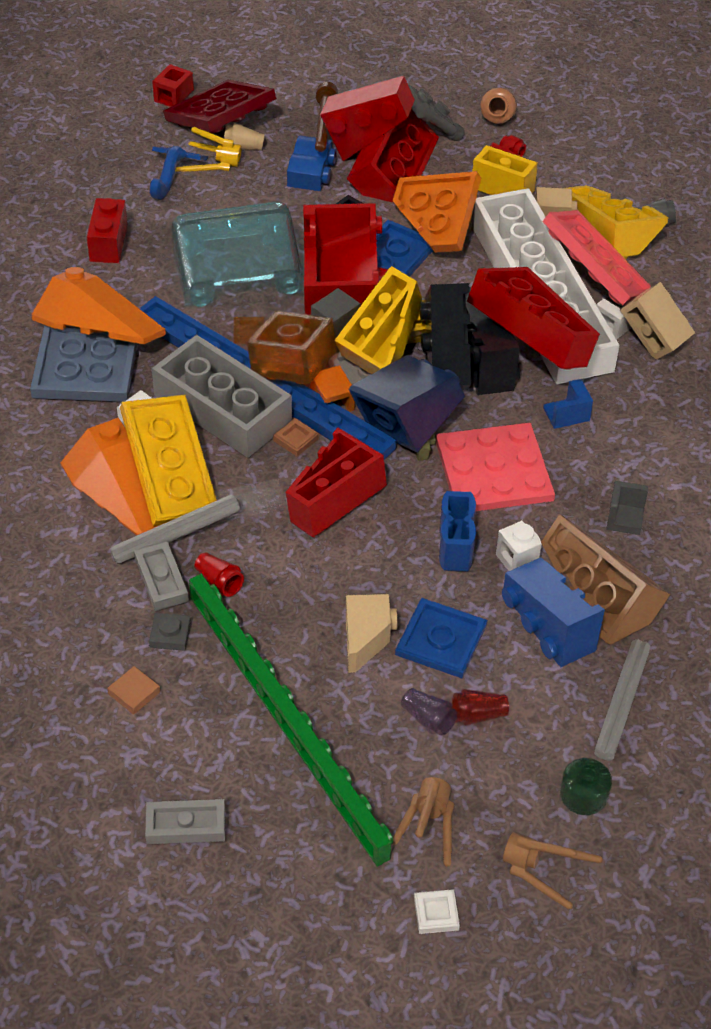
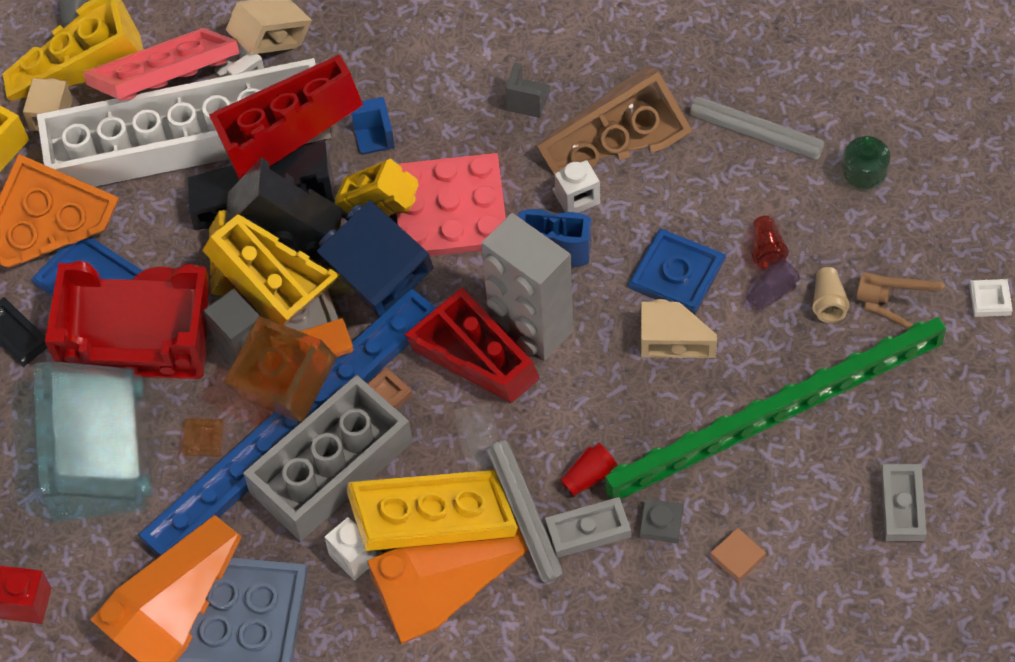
camera: 80 degrees left, 10 degrees up
(375, 487) = (528, 286): none -> light grey brick
(421, 759) = (829, 296): none -> tan cone
(484, 402) = (382, 184): none -> yellow brick
(526, 852) = (932, 220): medium nougat plant -> none
(554, 612) = (662, 166): blue wedge -> none

